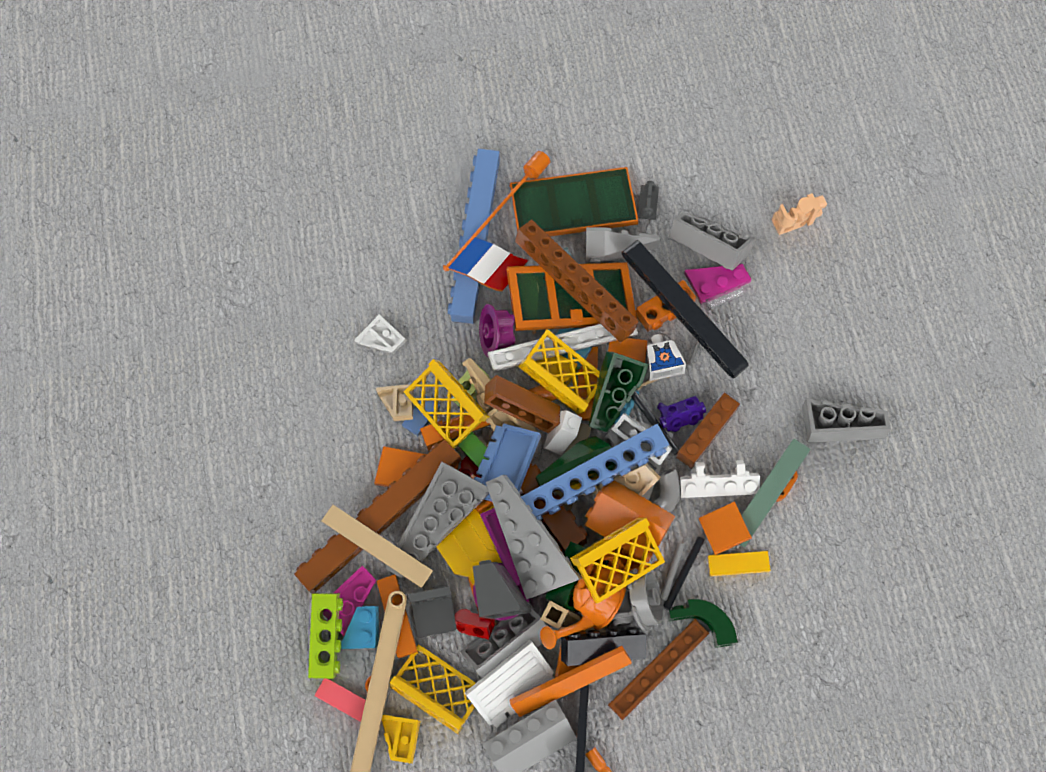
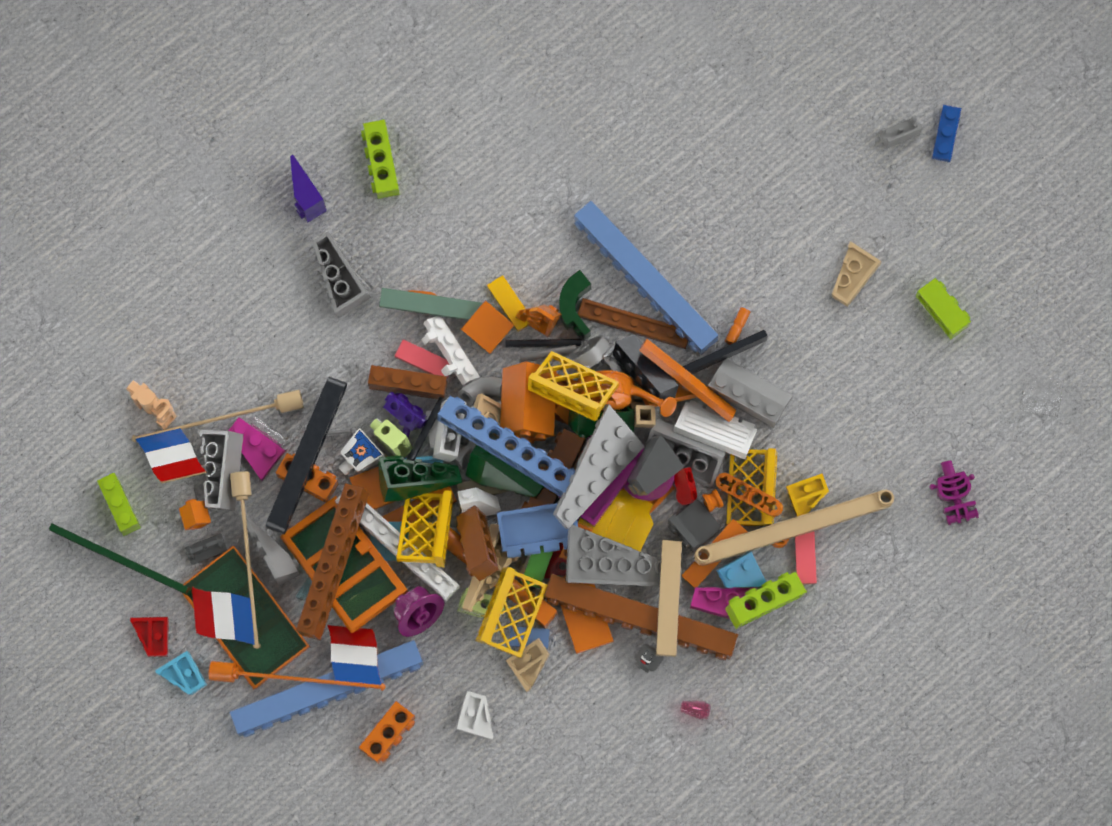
camera: 120 degrees left, 5 degrees up
(271, 520) = (696, 709): none -> clear pink cone
(342, 500) = (647, 658): none -> dark grey head
(409, 253) = (387, 722): none -> orange brick
(428, 676) = (748, 496): none -> orange beam
(446, 642) = (712, 500): none -> orange wheel
(552, 137) = (183, 673): none -> medium azure wing
(587, 183) = (229, 614): none -> flag
(598, 130) = (153, 634): none -> red wing
(662, 389) = (391, 438): none -> yellowish green torso
(674, 132) = (120, 559): none -> dark green tile
(682, 202) = (194, 514): none -> orange brick
(698, 704) = (645, 278): none -> medium blue brick
(706, 578) = (540, 318): none -> orange wedge
(723, 153) = (119, 504): none -> lime brick
(726, 455) = (421, 358): none -> coral tile
(746, 211) = (172, 453): none -> flag
(942, 430) = (308, 200): none -> dark purple slope
(976, 522) = (388, 186): none -> lime brick

